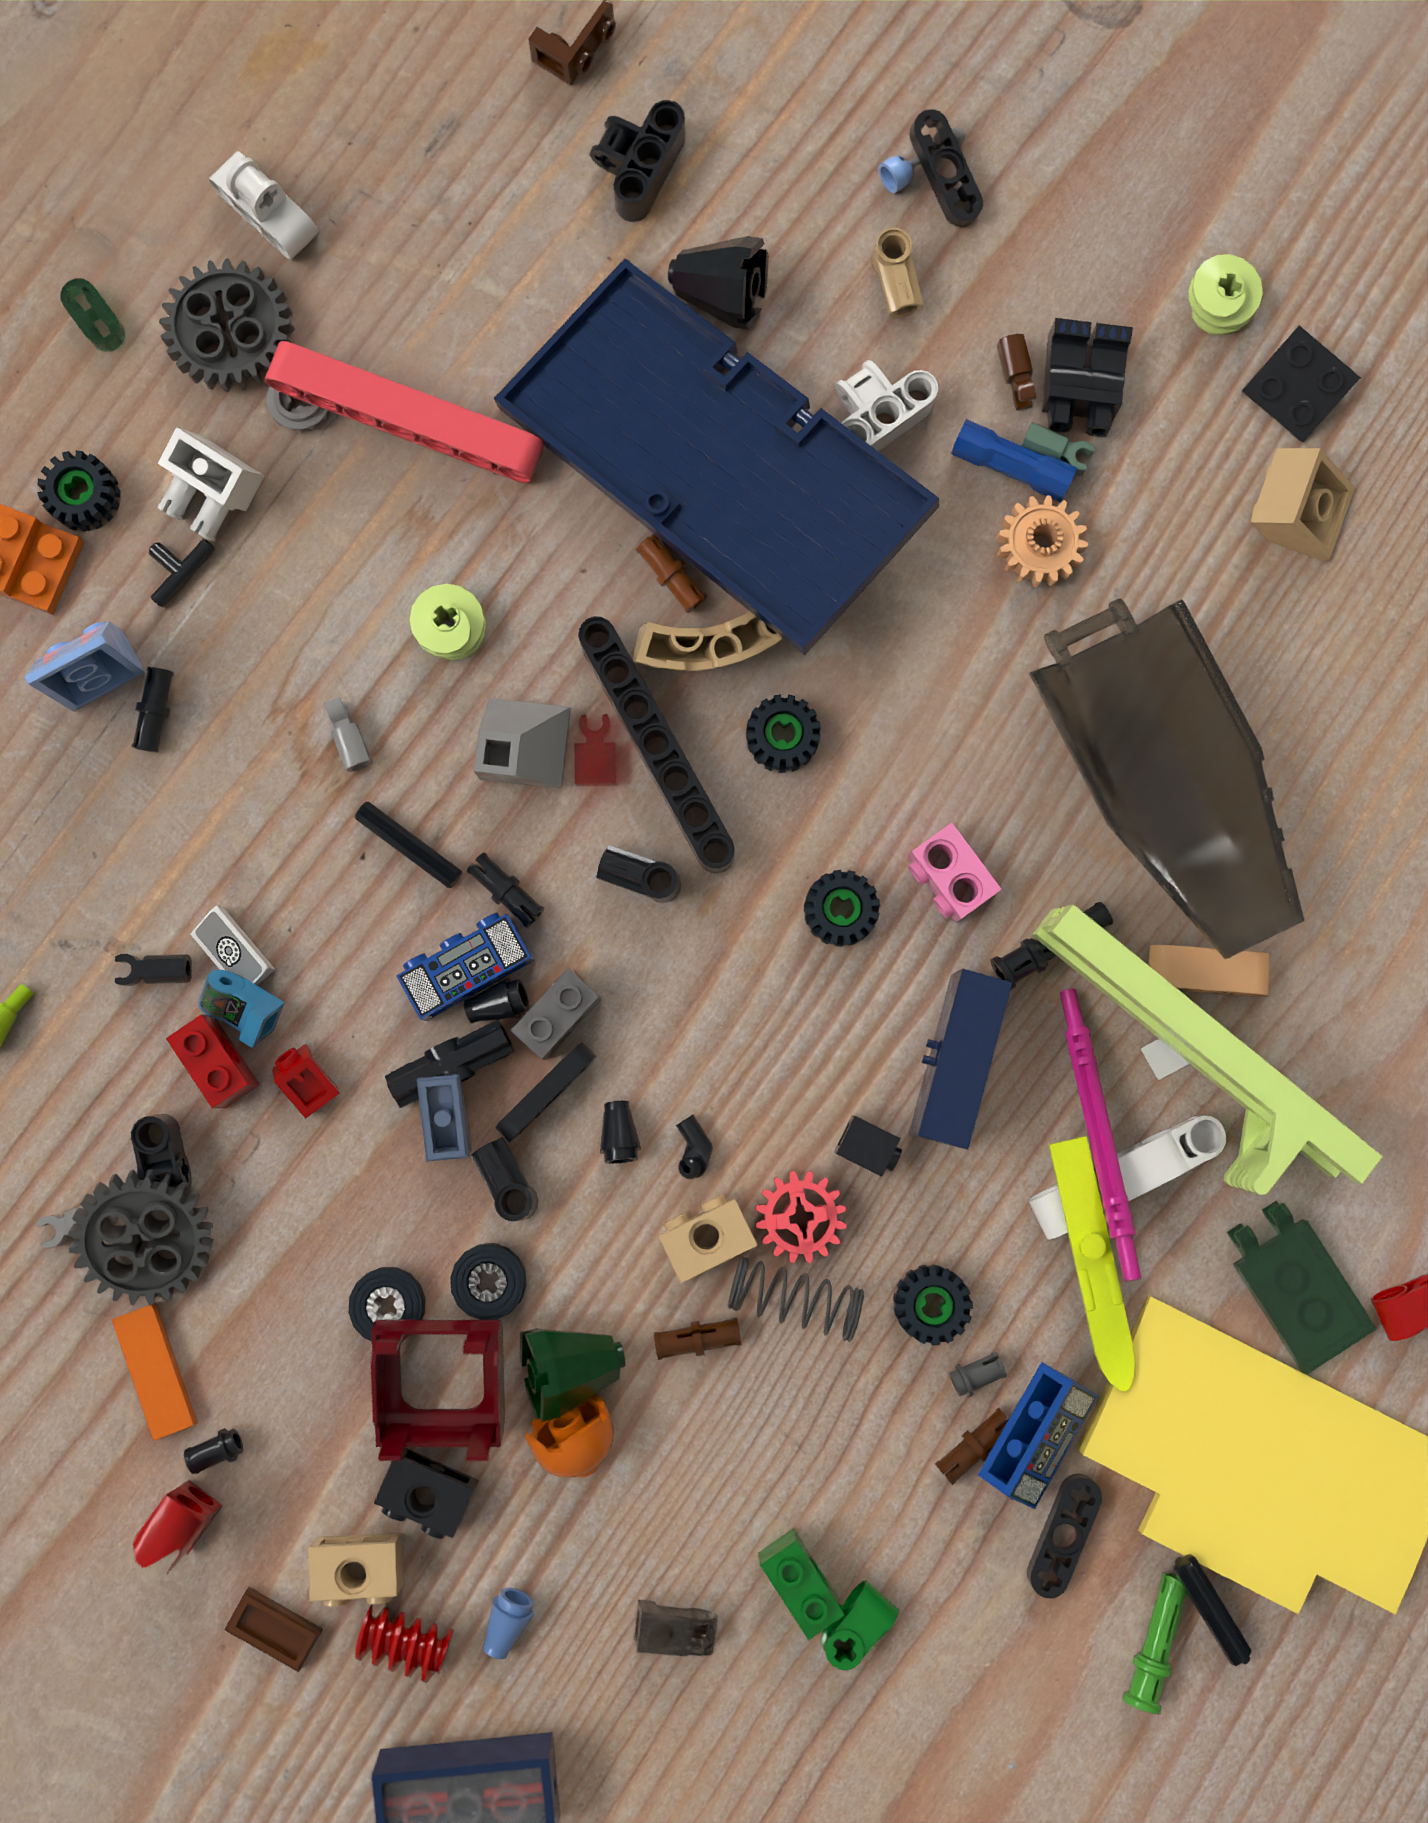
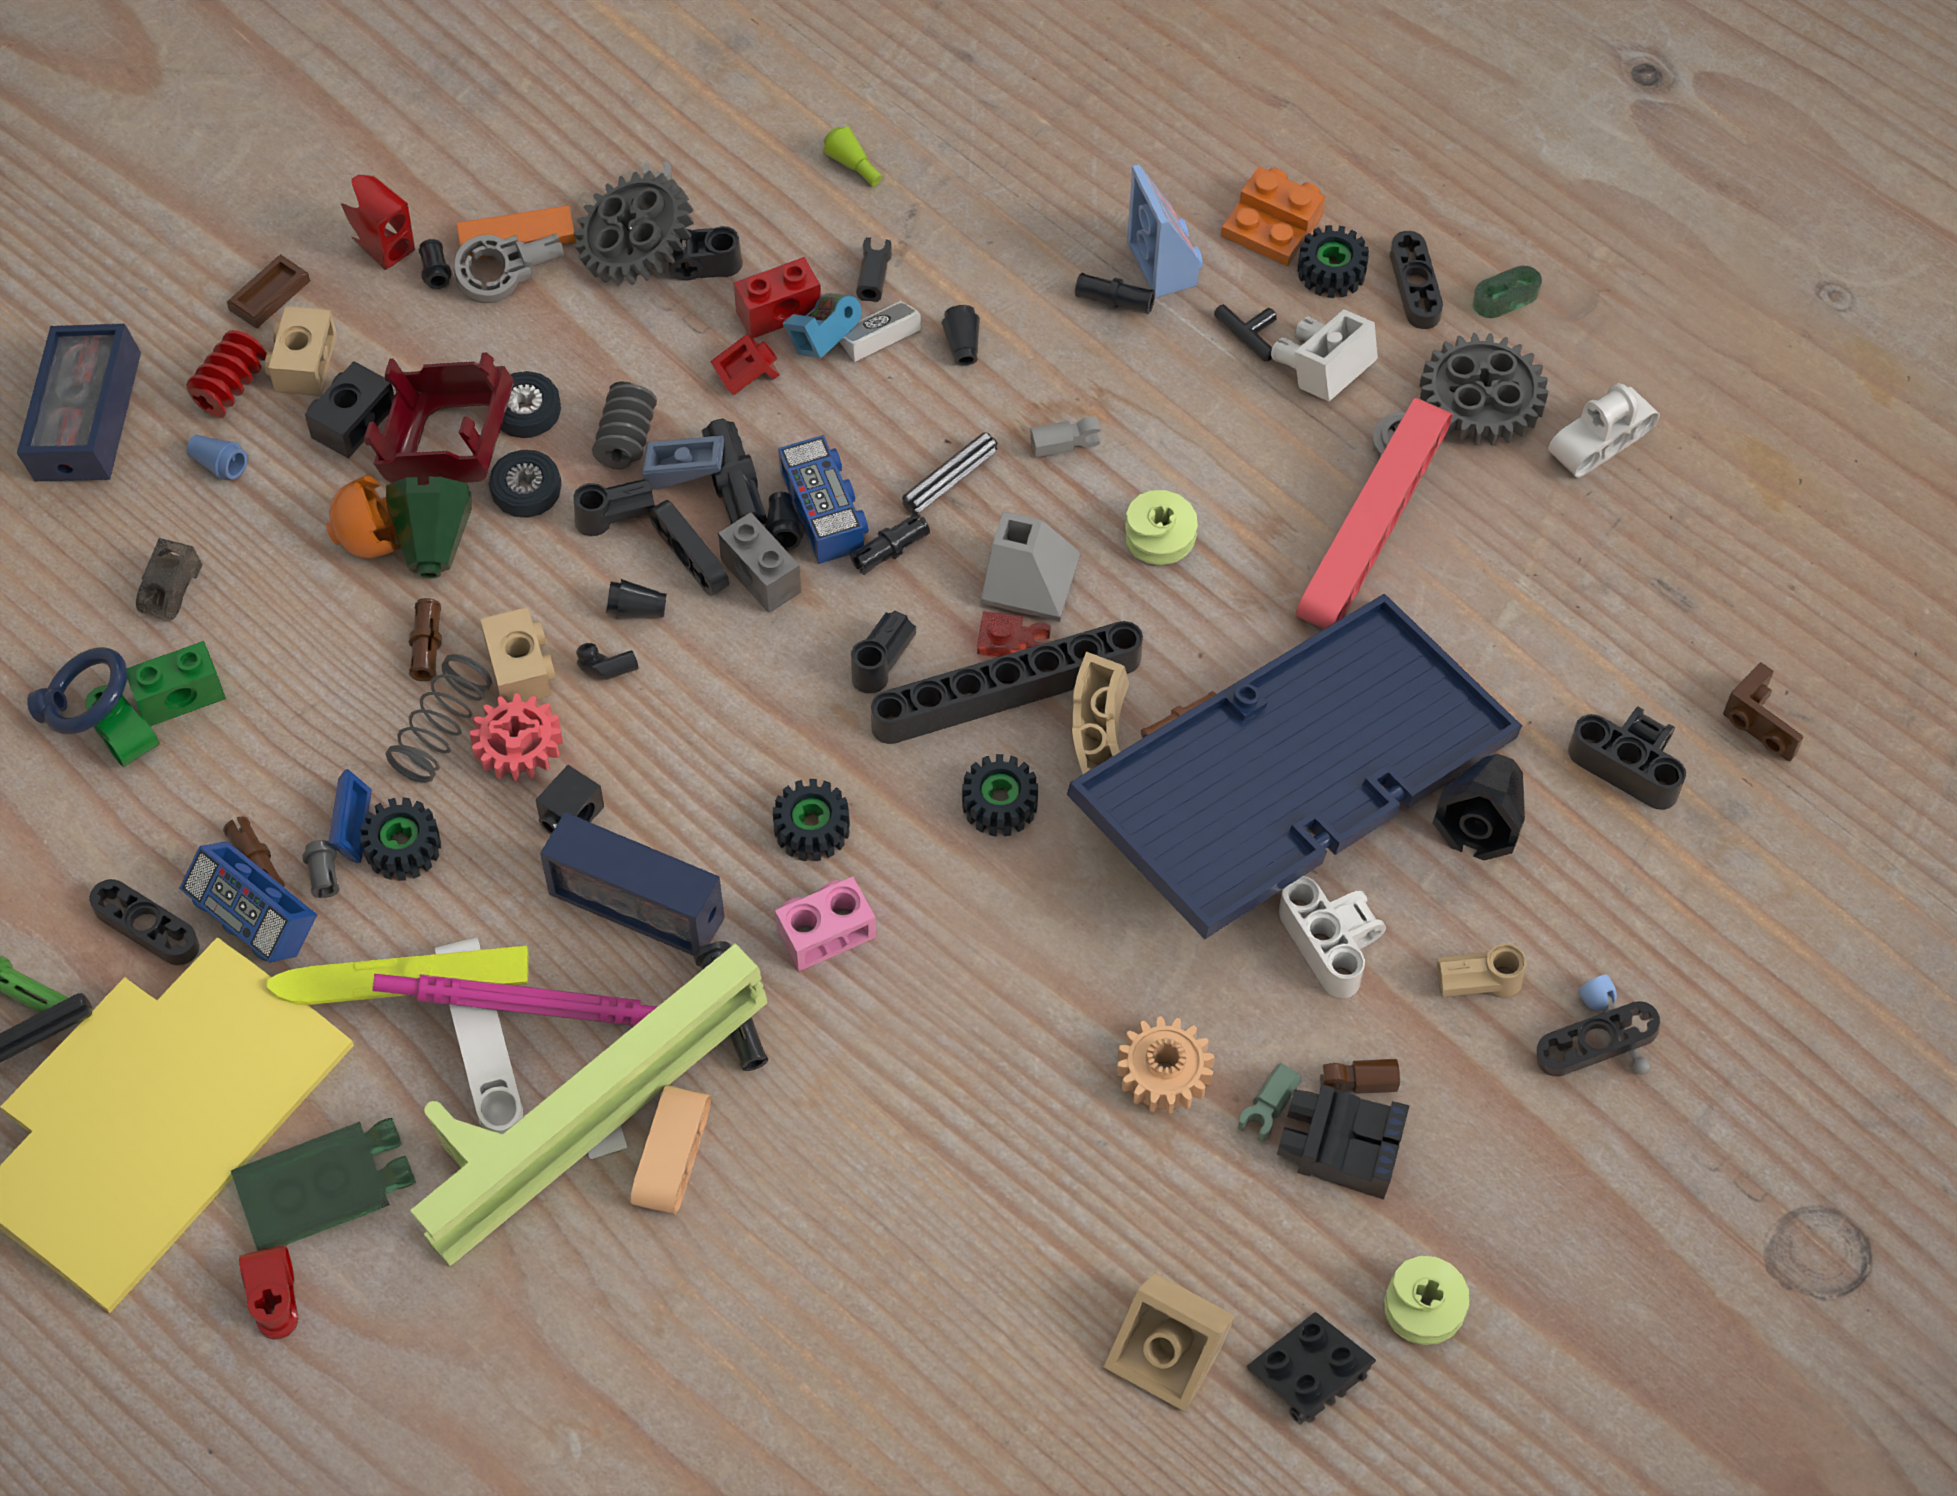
camera: 100 degrees right, 25 degrees down
(73, 398) = (1413, 293): none -> black beam
(188, 1346) = (514, 256): none -> light grey pin
(230, 859) = (962, 333): none -> black cone
(404, 1191) = (624, 425): none -> dark grey piece
(841, 1707) = (49, 702): none -> dark blue piece
(917, 1361) = (349, 812): none -> blue tile
(1040, 472) = (1244, 1076): blue axle -> none
(1174, 769) = (881, 1103): clear smoke windscreen -> none

